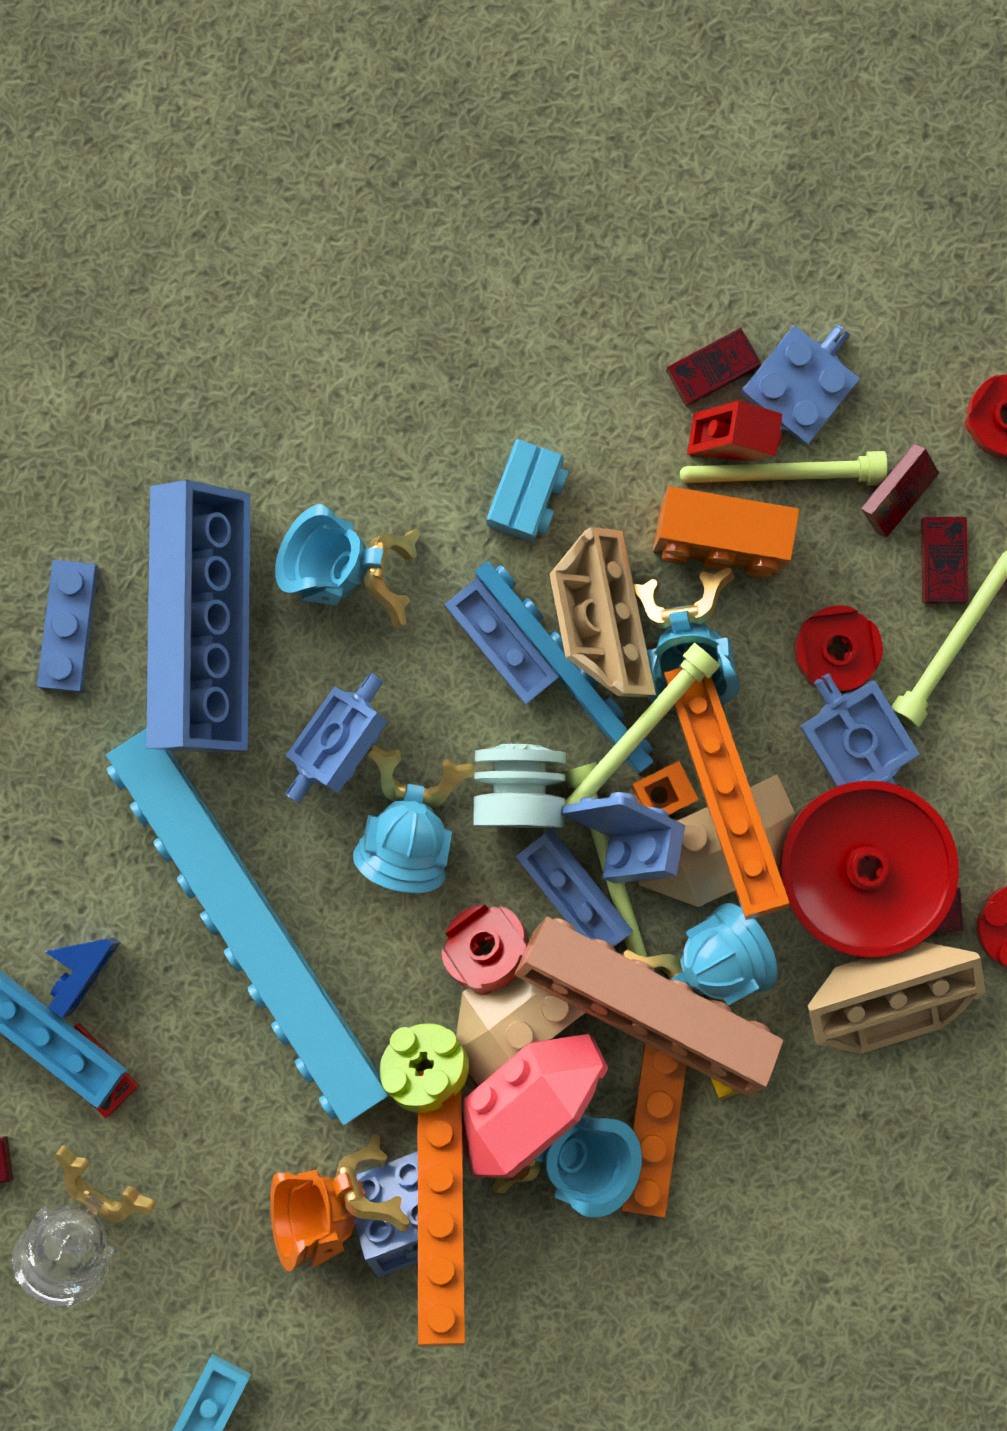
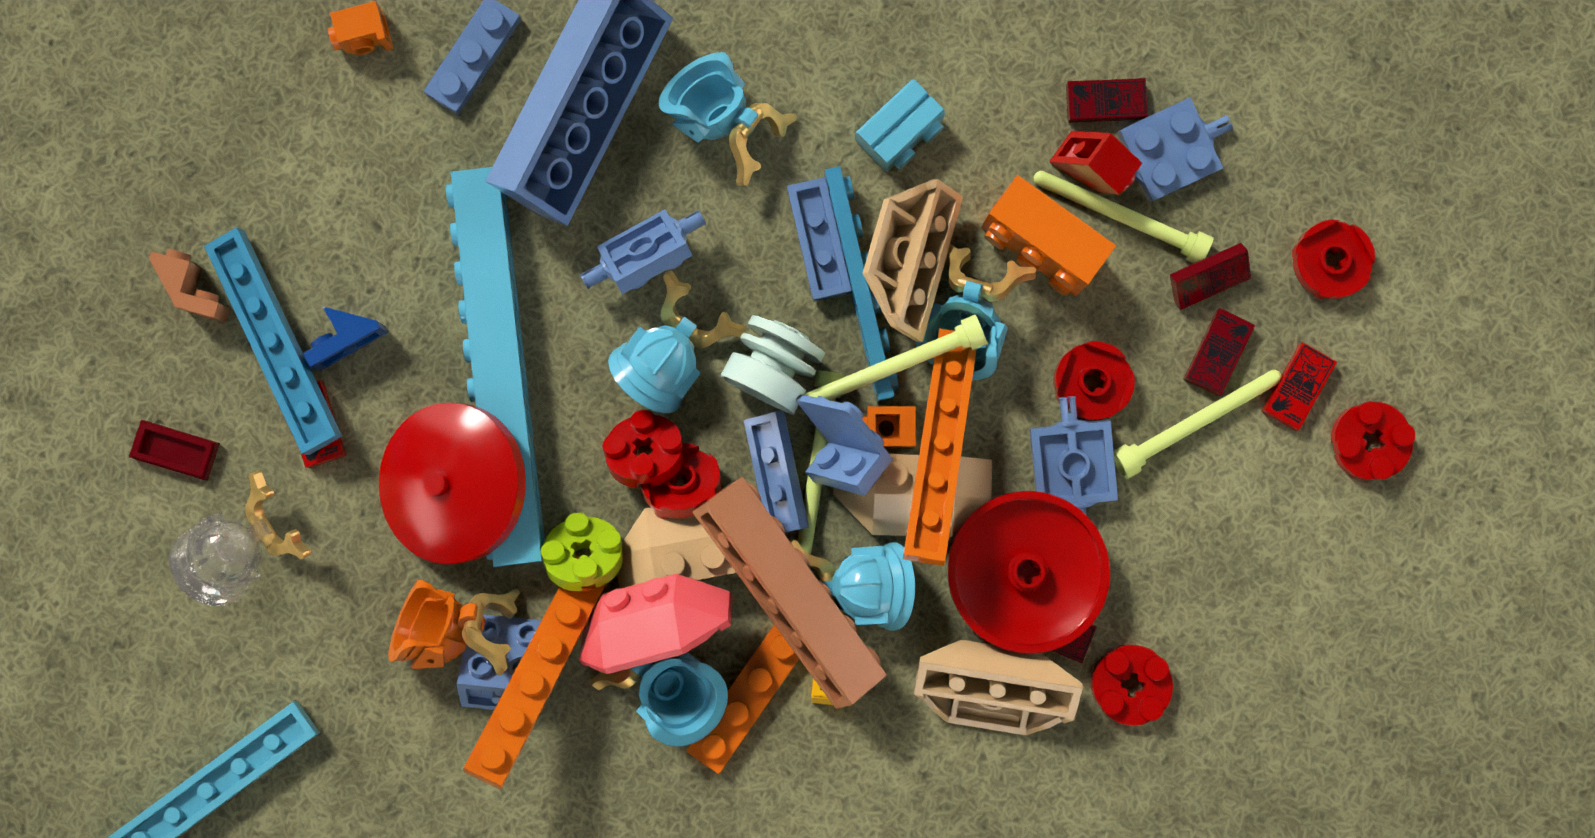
camera: 25 degrees right, 0 degrees up
(260, 1063) = (452, 483): none -> red dish
(420, 916) = (640, 431): none -> red plate

